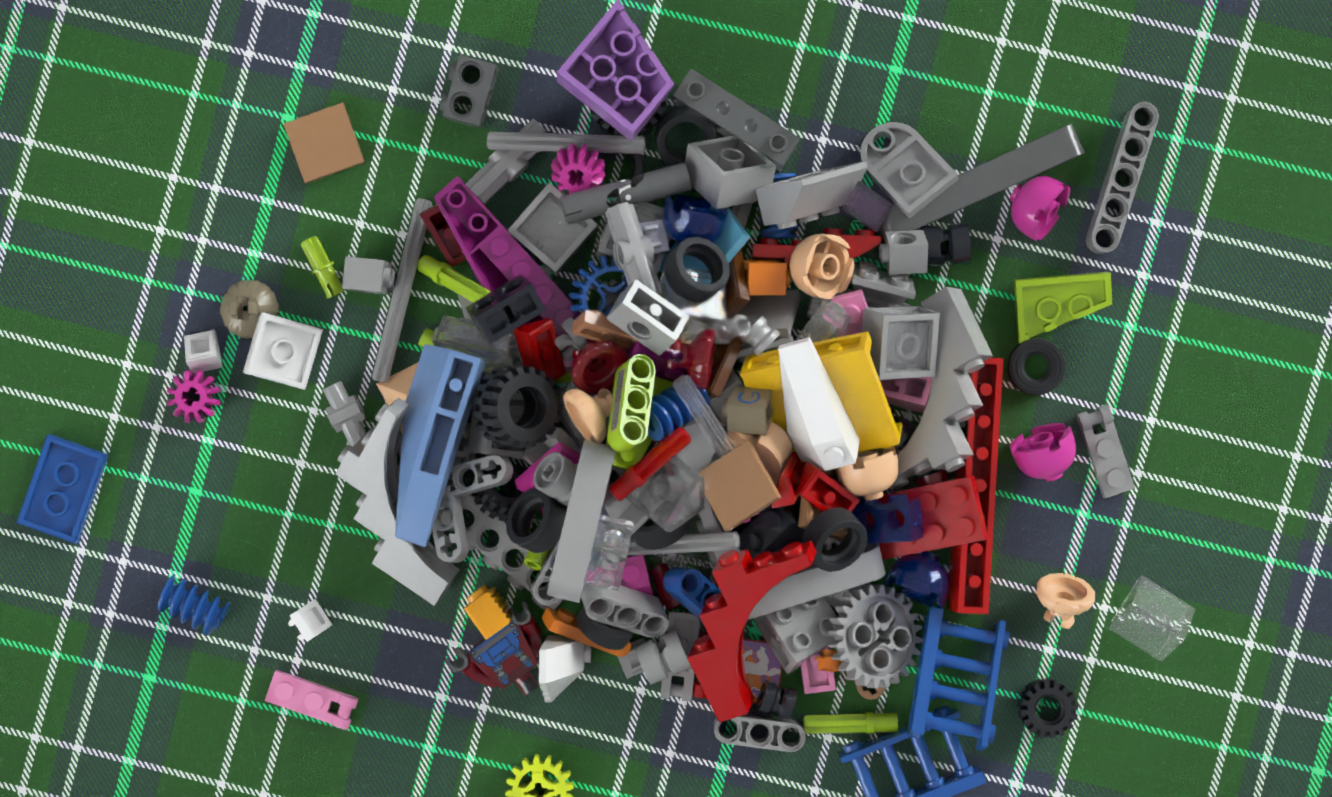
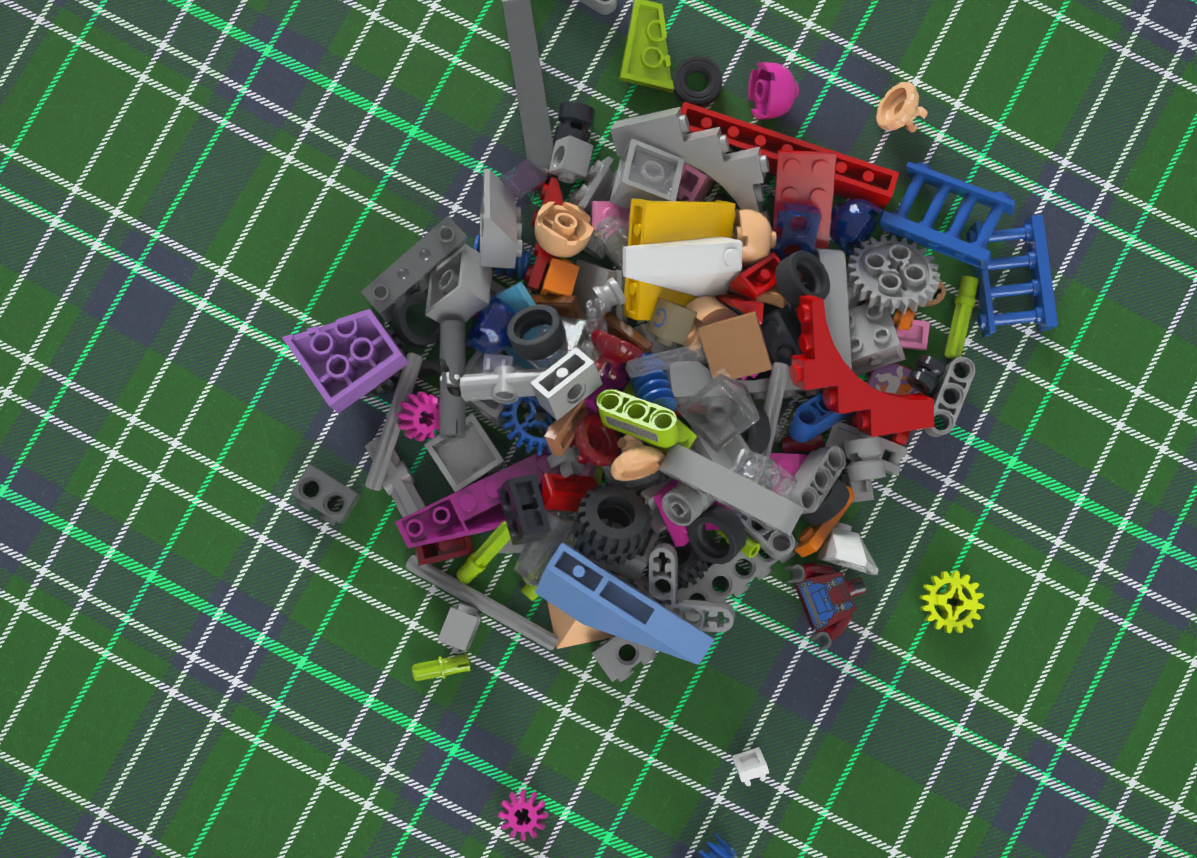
camera: 85 degrees left, 5 degrees down
(202, 351) = (485, 796): white slope -> none
(256, 297) = (468, 735): dark tan hair -> none
(282, 350) = (505, 723): white tile -> none
(310, 699) = (820, 784): bright pink plate -> none
(324, 143) = (333, 636): medium nougat tile -> none
(345, 413) = (575, 682): light grey axle -> none
(373, 471) = (634, 669): arch -> none
(488, 611) = (784, 602): light orange brick -> none
(638, 474) = (700, 431): red axle -> none
(908, 168) = (499, 139): light grey tile -> none
(932, 478) = (769, 191): dark red tile -> none
(1037, 205) = (561, 41): dark pink cylinder -> none
(1066, 712) = (1001, 137): black tyre -> none
(1105, 452) = (785, 44): light grey plate -> none
(1153, 619) = (937, 43): clear slope -> none

